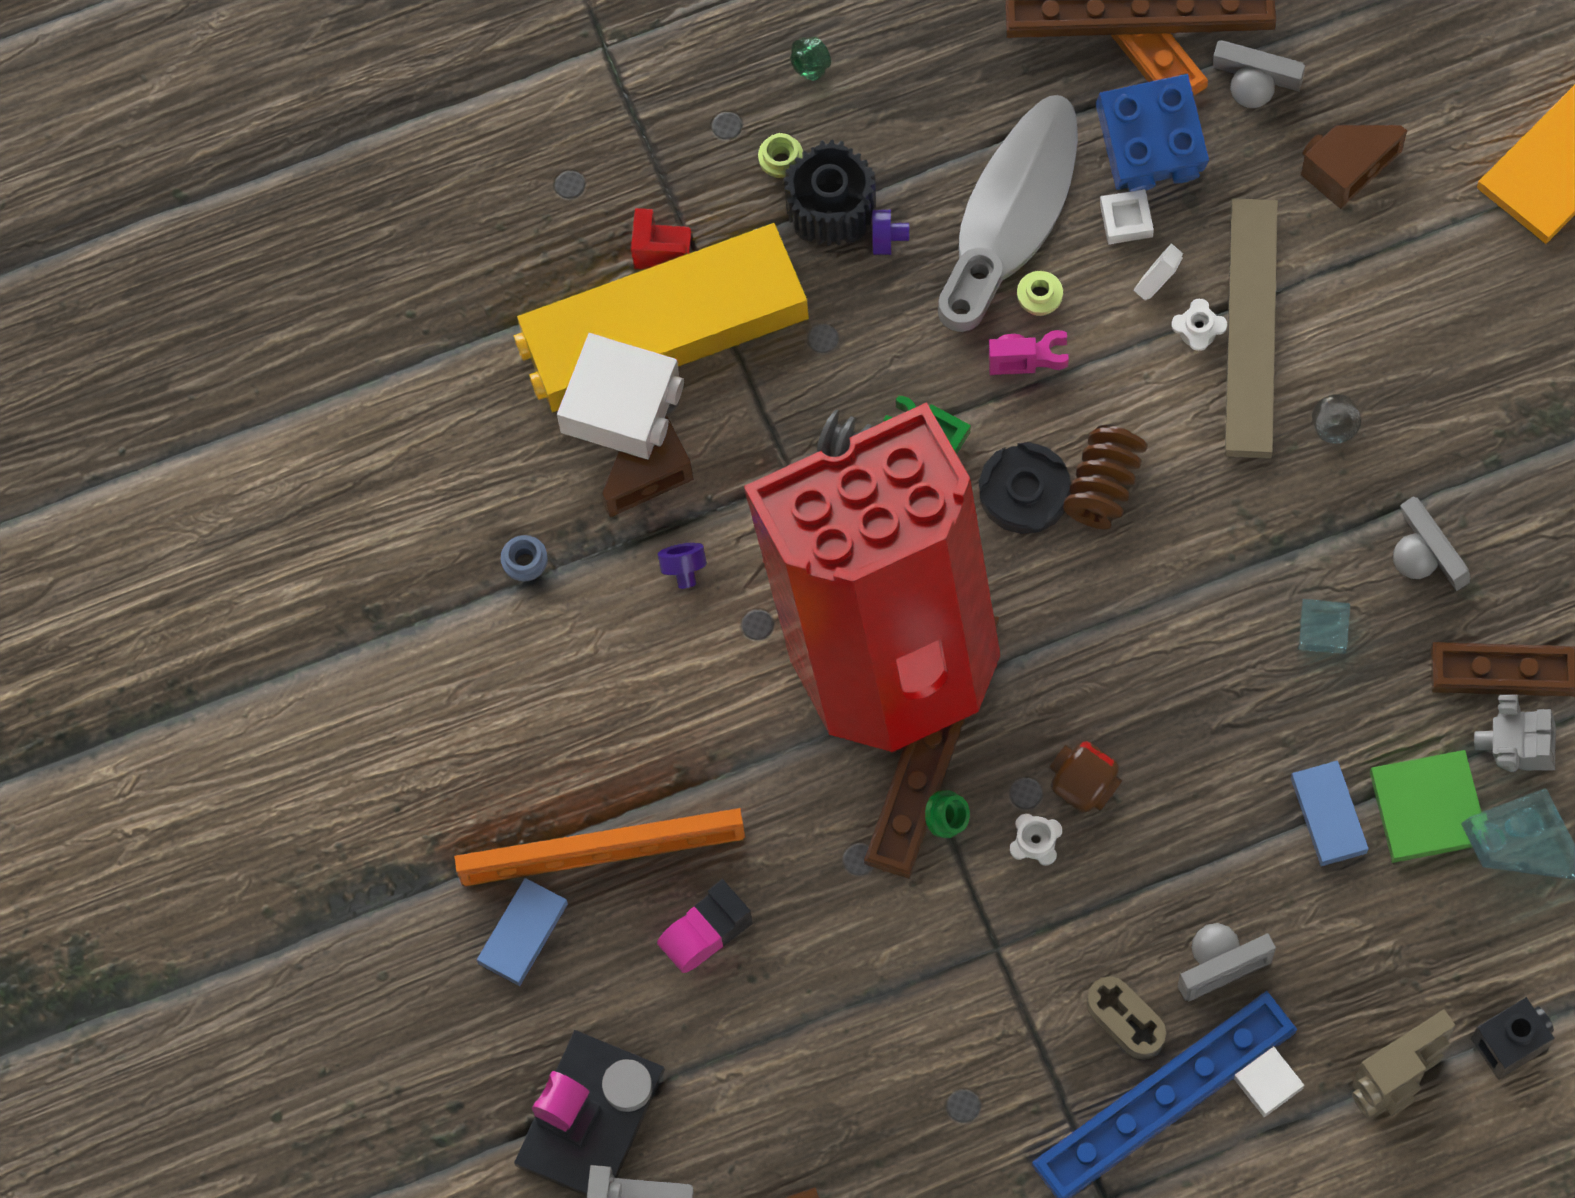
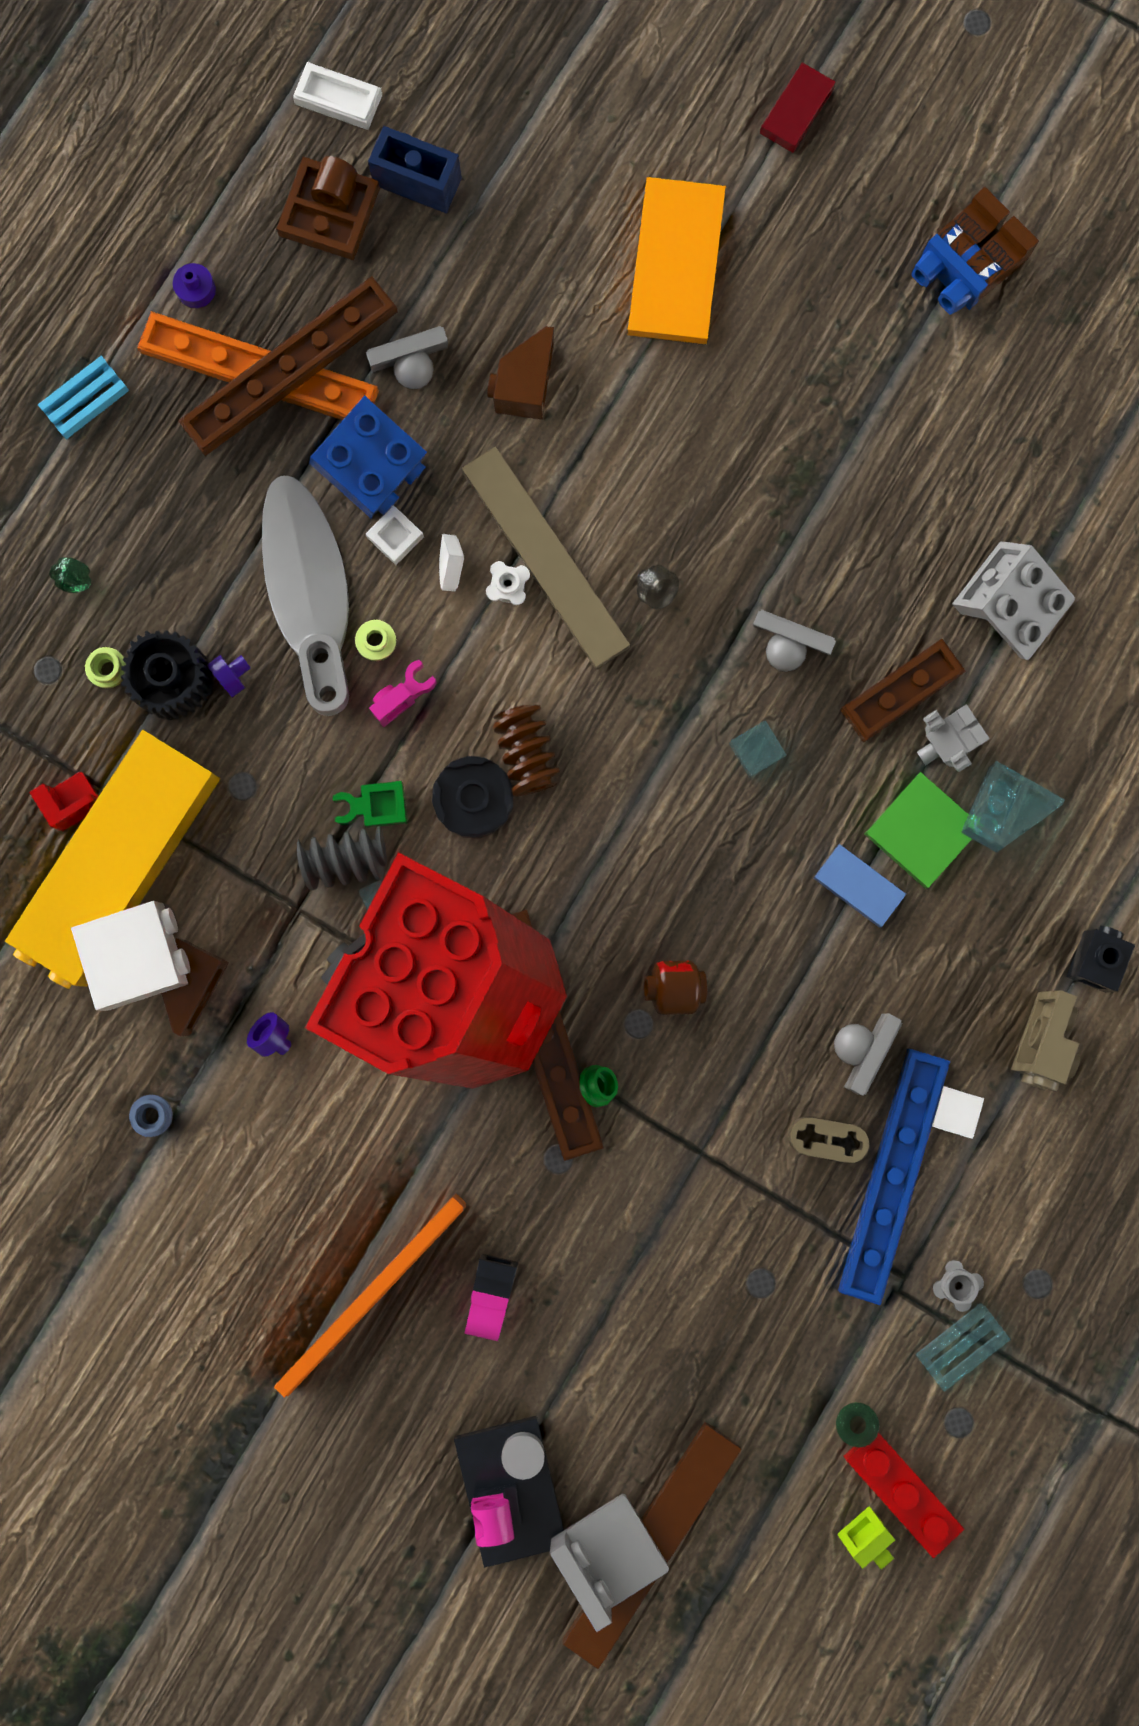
camera: 40 degrees left, 15 degrees up
(522, 932) = (361, 1394): medium blue tile -> none
(1036, 826) = (683, 1059): white plate -> none

